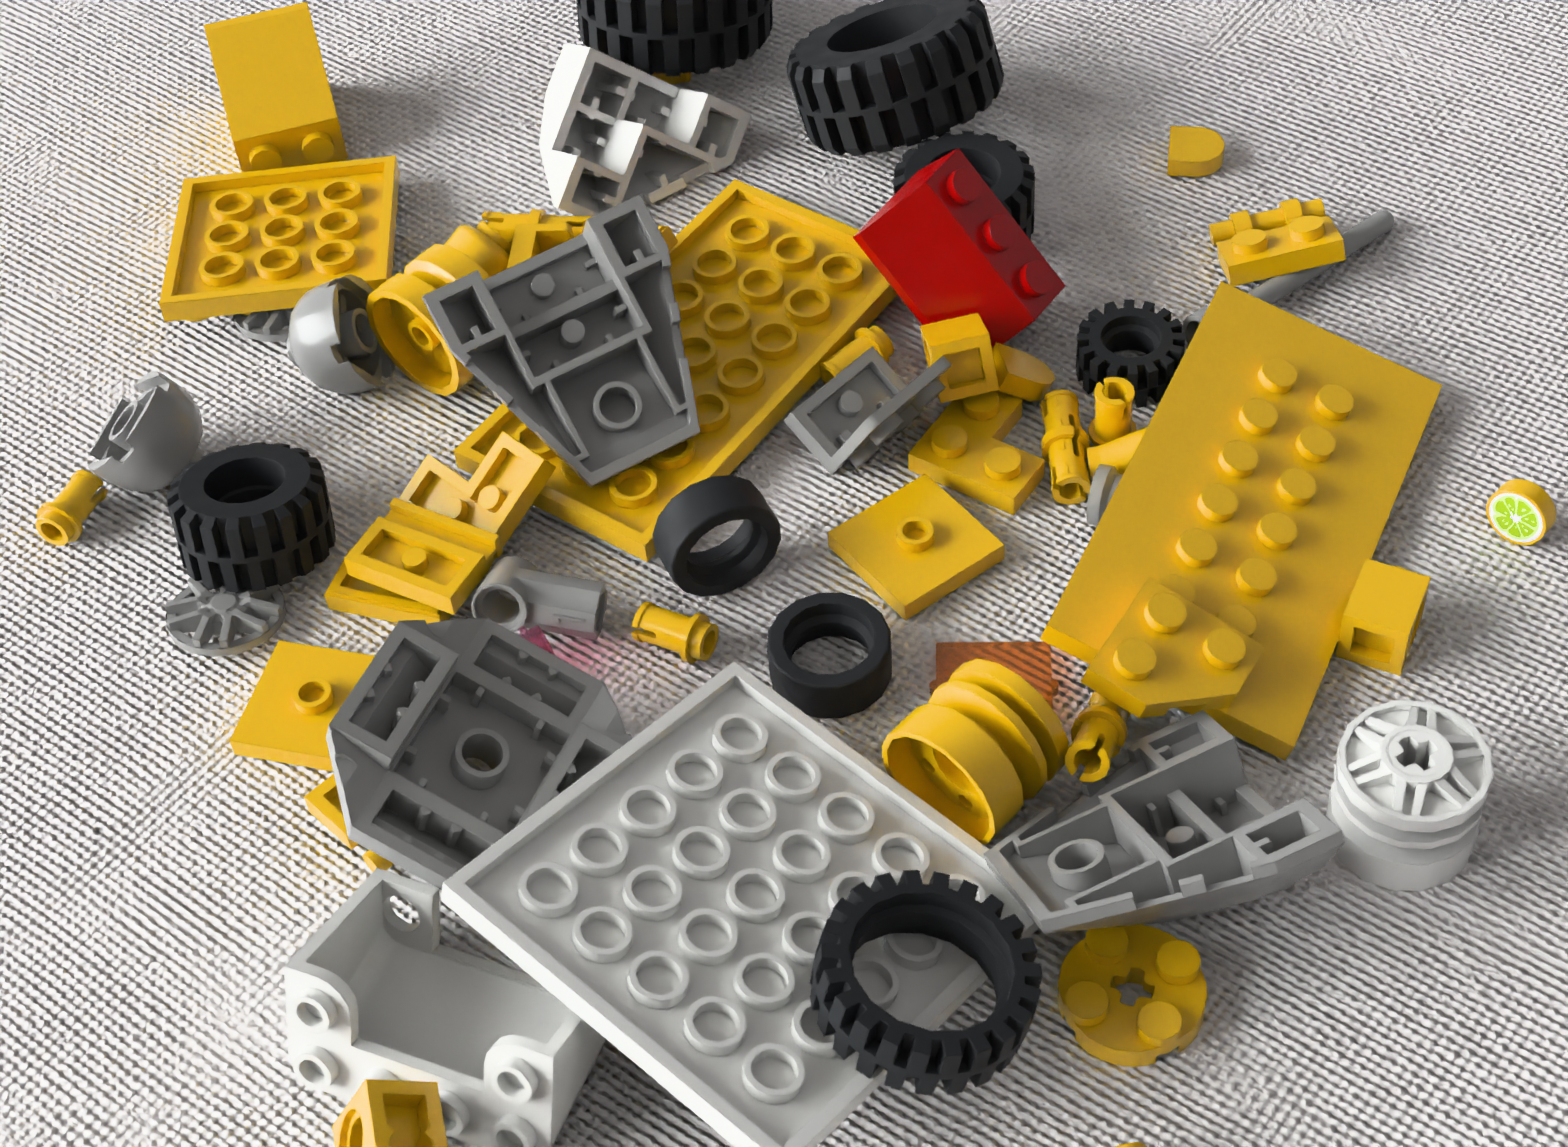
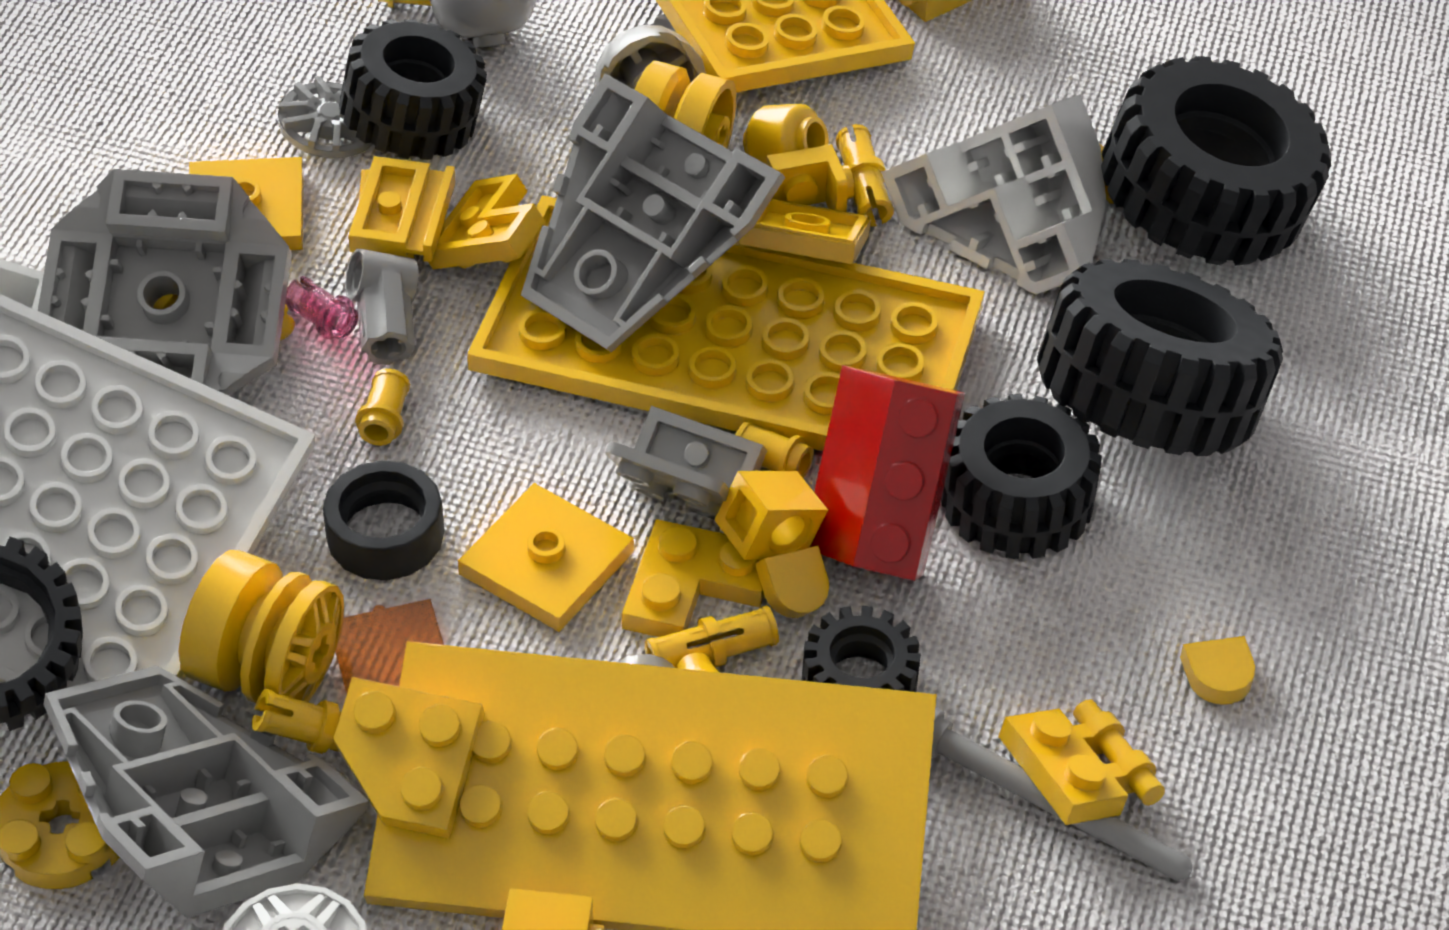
camera: 65 degrees right, 0 degrees up
(700, 510) = (477, 392): black tyre -> none
(1112, 411) = (749, 655): yellow pin -> none

